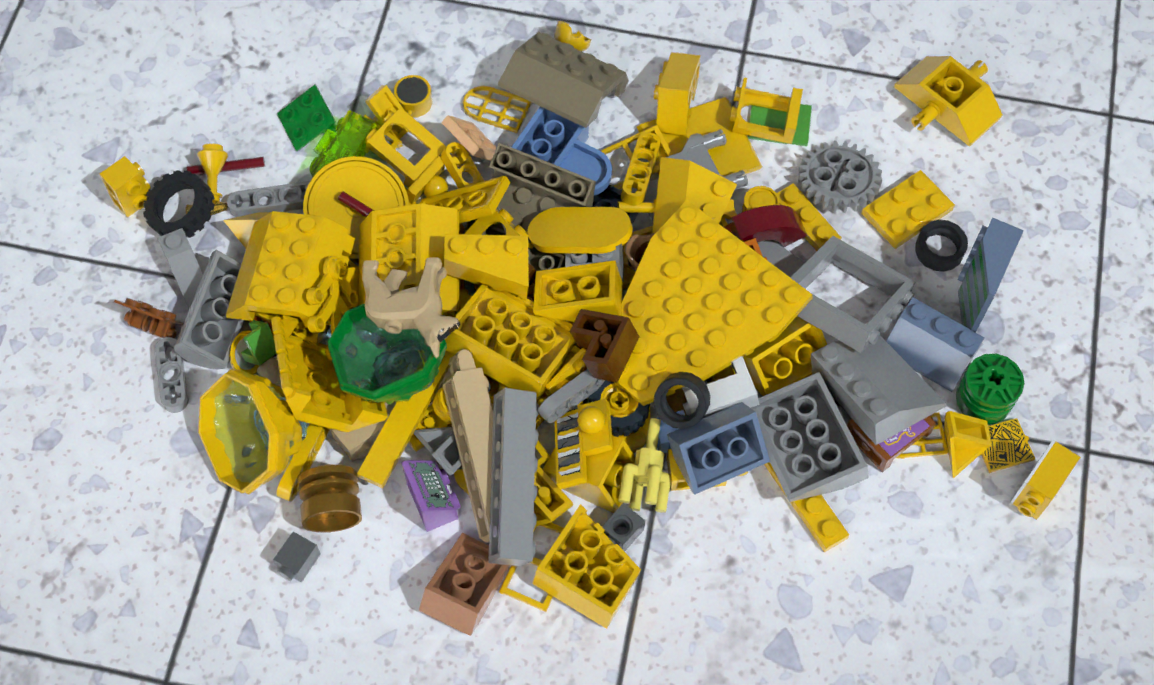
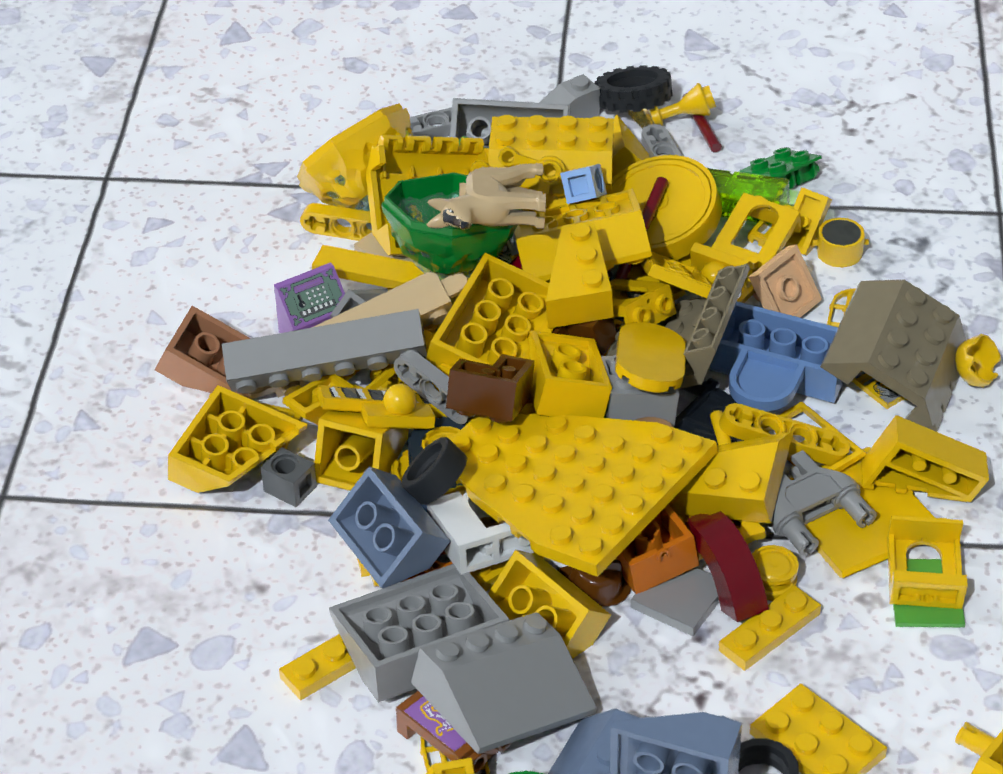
camera: 85 degrees right, 20 degrees down
(126, 185) = (643, 42): yellow brick -> none
(149, 318) = (494, 80): dark orange hinge -> none
(296, 557) = (236, 234): dark grey brick -> none
(329, 498) = (295, 237): pearl gold wheel -> none
(358, 245) = (583, 183): none -> light blue brick
(646, 473) = (340, 466): light yellow plant -> none
(856, 185) = (844, 652): light grey gear -> none
(868, 269) = (663, 608): light grey window -> none

